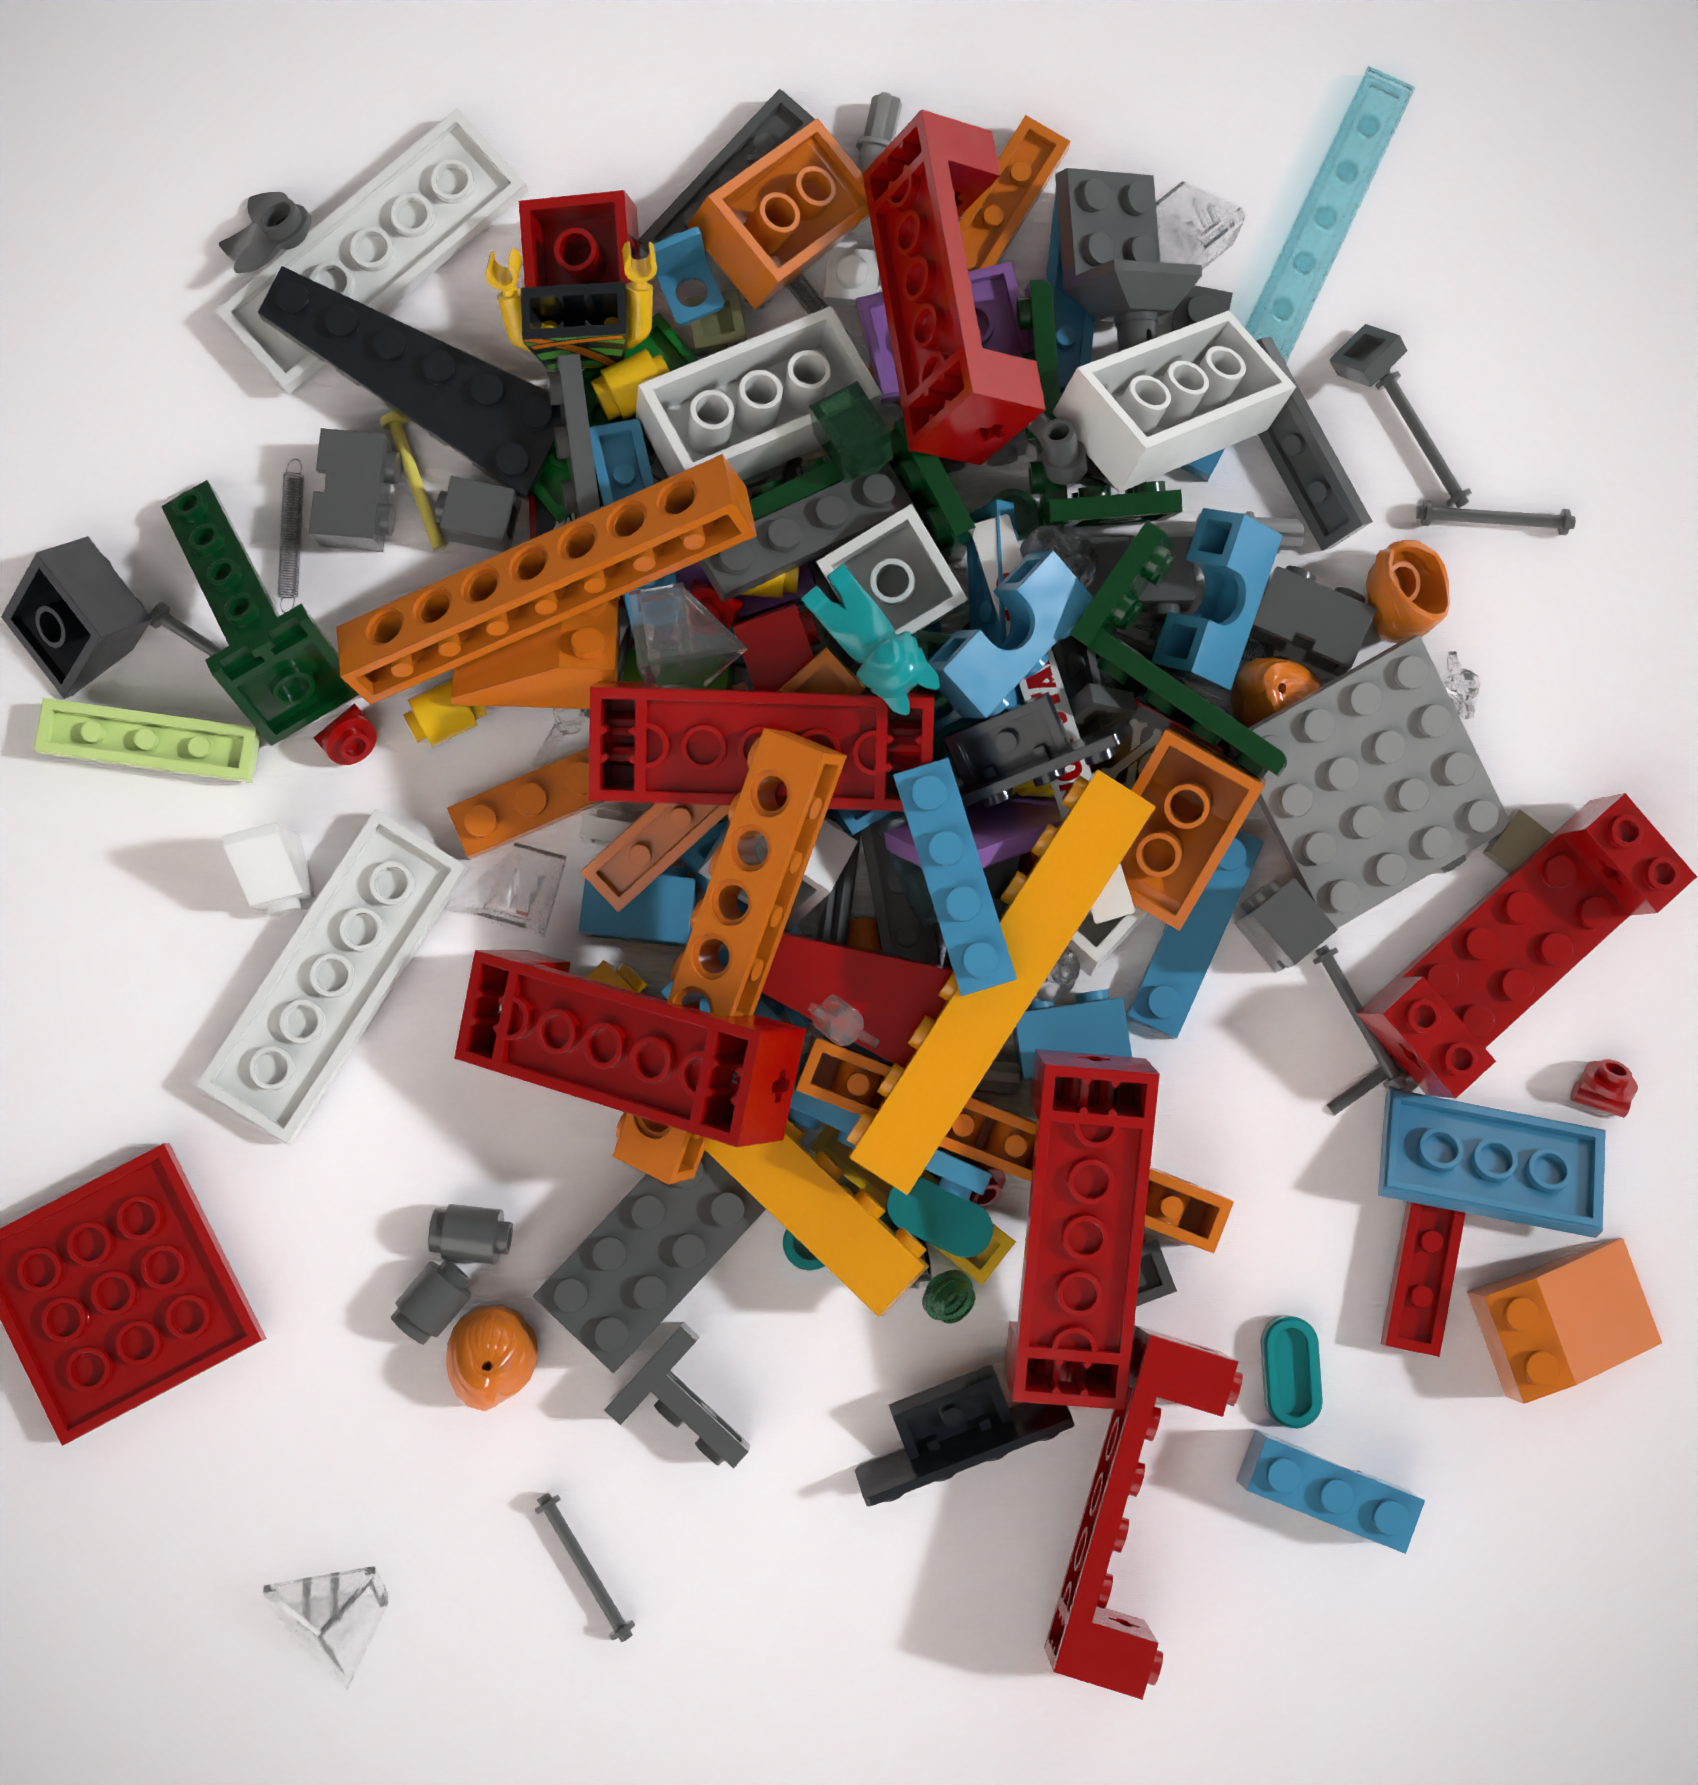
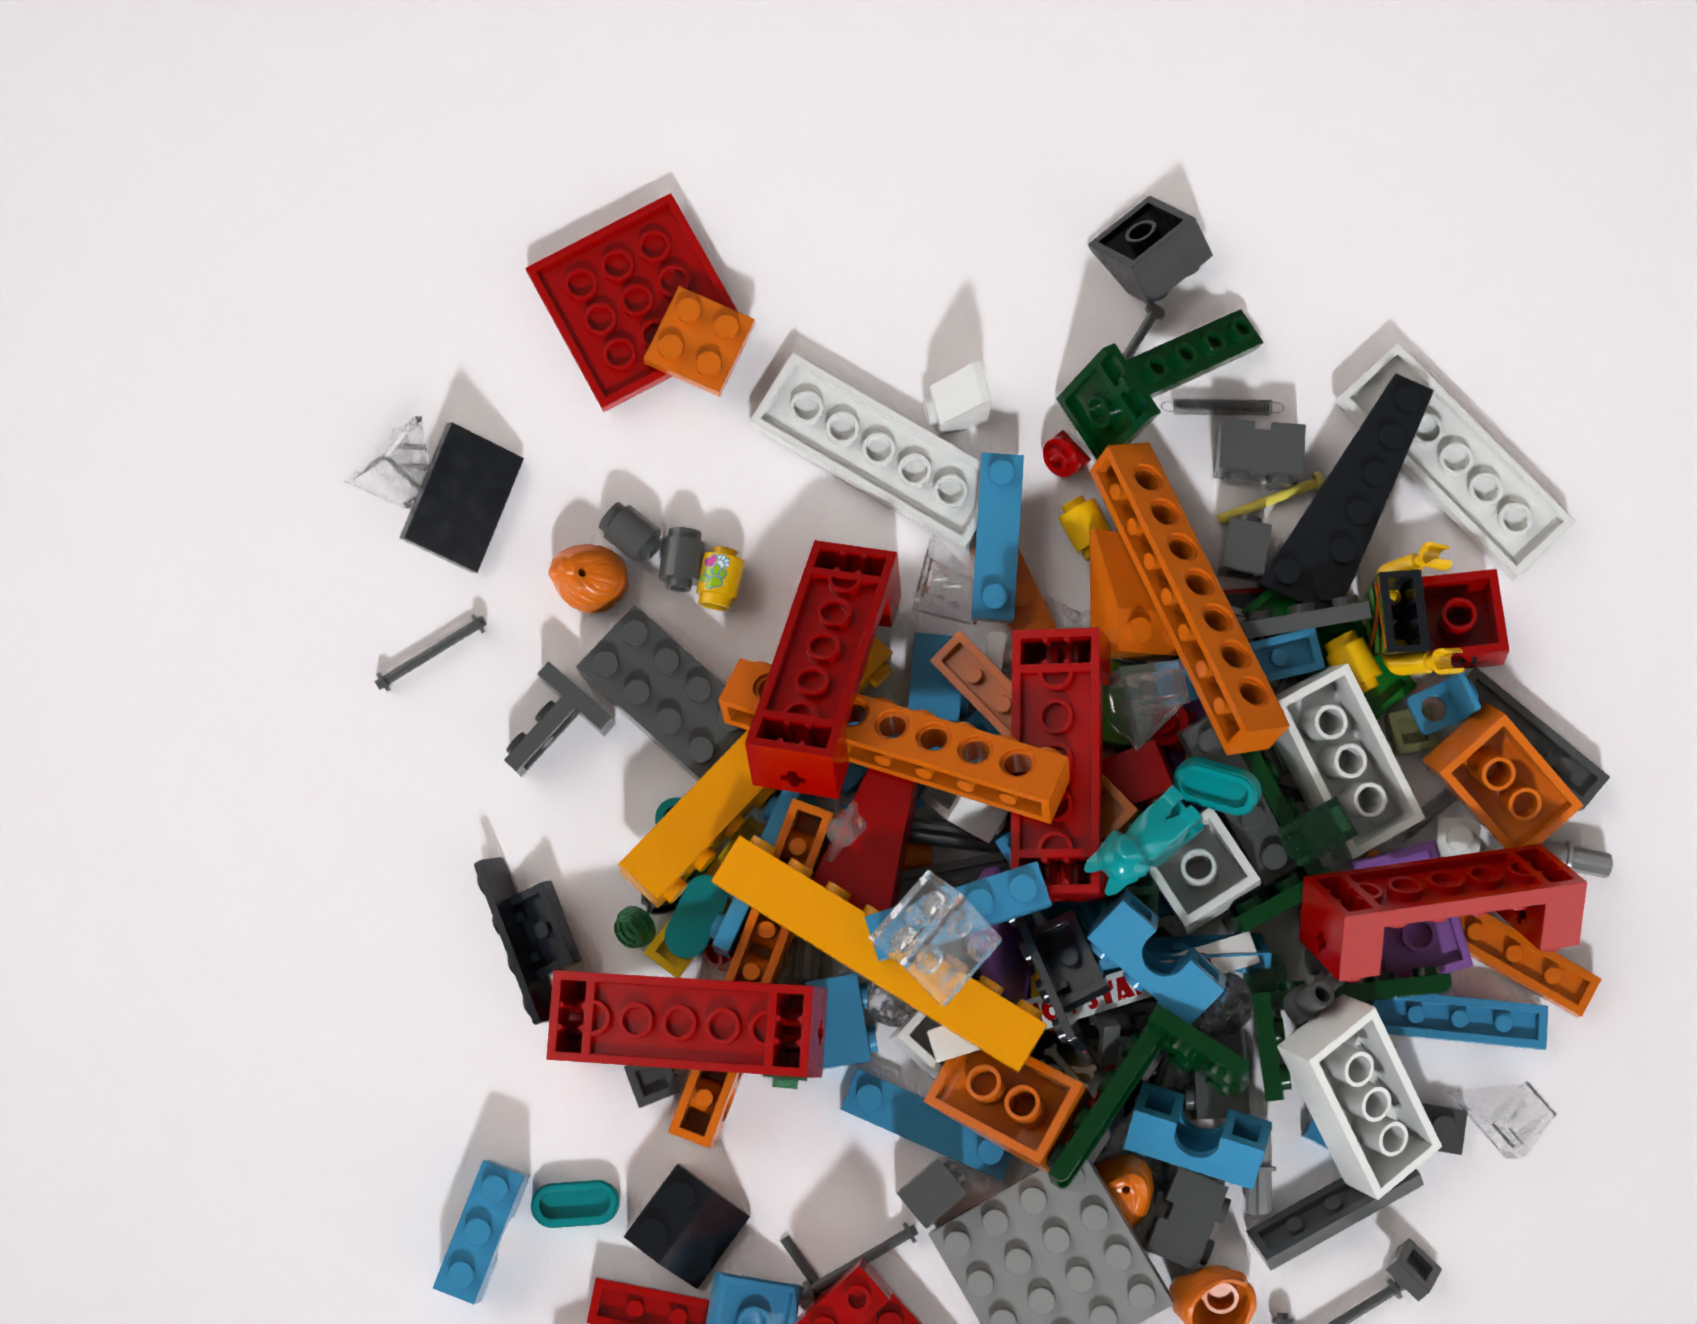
camera: 90 degrees right, 5 degrees down
(147, 740) = (1056, 307): yellowish green plate -> none
(175, 1209) = (699, 341): none -> orange plate
(274, 226) = (1466, 385): dark grey plate -> none
(377, 1529) = (461, 497): none -> black tile
(455, 823) = (997, 538): none -> dark azure plate
(497, 1184) = (719, 578): none -> yellow brick
(793, 551) = (1217, 786): none -> teal tile
(991, 904) = (936, 937): none -> clear bracket
(1084, 1635) = (370, 1039): red plate -> none
(1115, 254) = (1486, 1053): dark grey plate -> none
(1320, 1232) = (686, 1226): none -> black slope
(1329, 209) = (1537, 1238): clear light blue tile -> none

